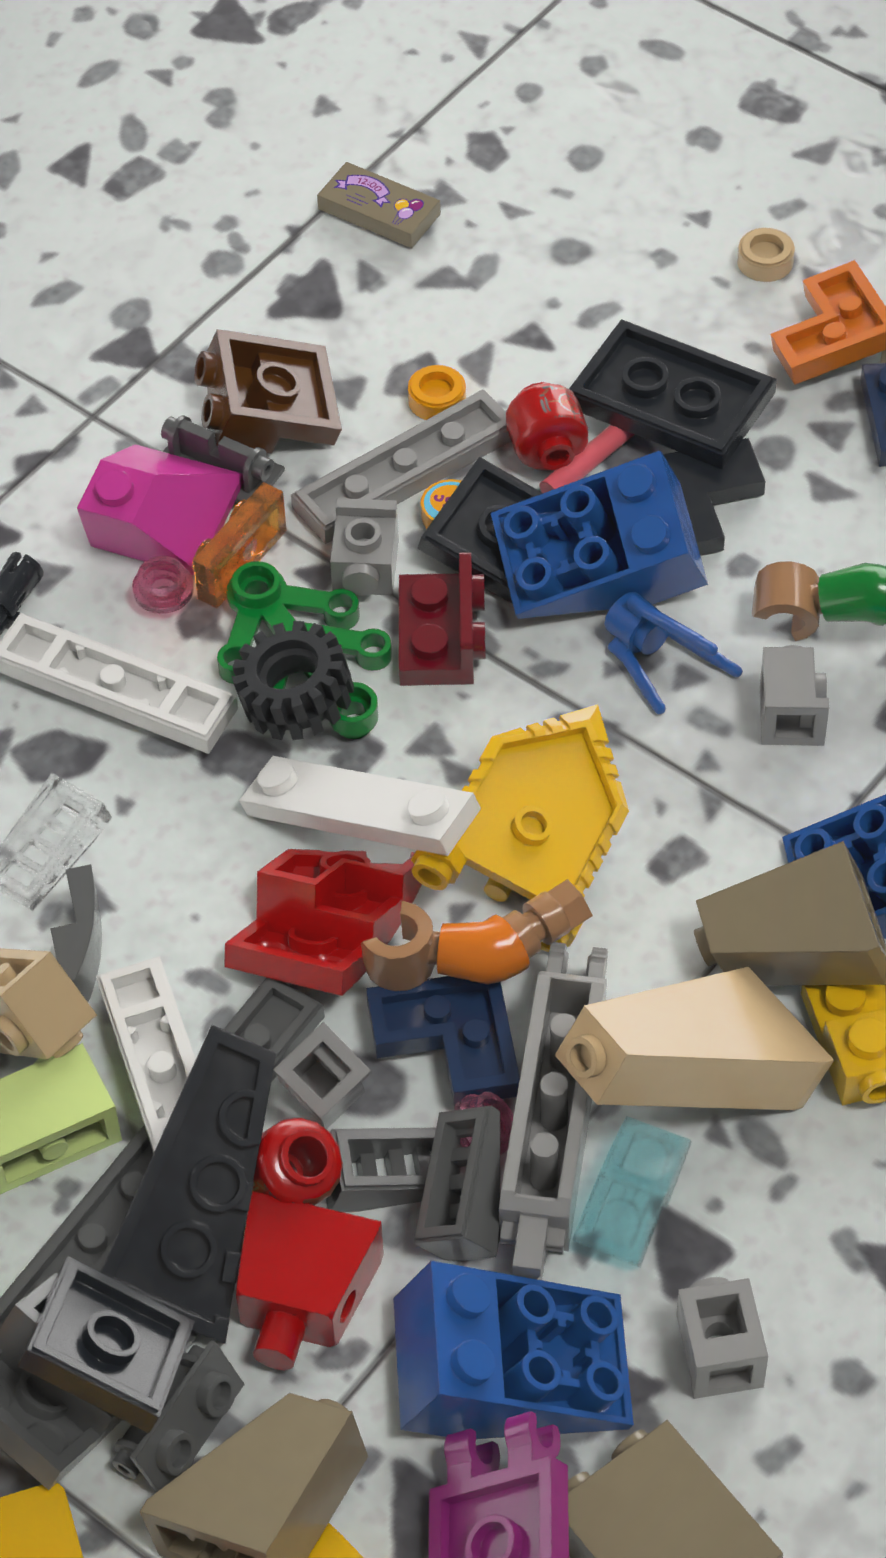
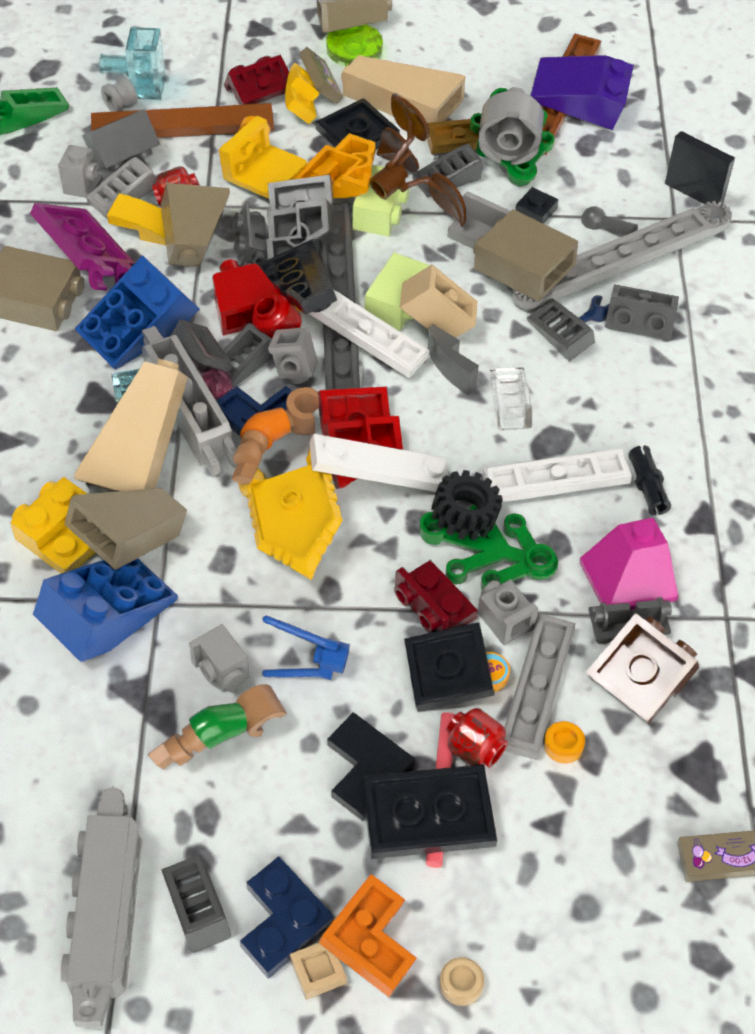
camera: 140 degrees right, 0 degrees up
(107, 1344) = (285, 215): black tile -> none
(158, 574) = (584, 529): clear pink plate -> none
(245, 538) = (570, 561): clear orange plate -> none
(600, 541) = (380, 678): blue slope -> none
(737, 1357) = (58, 367): light grey brick -> none

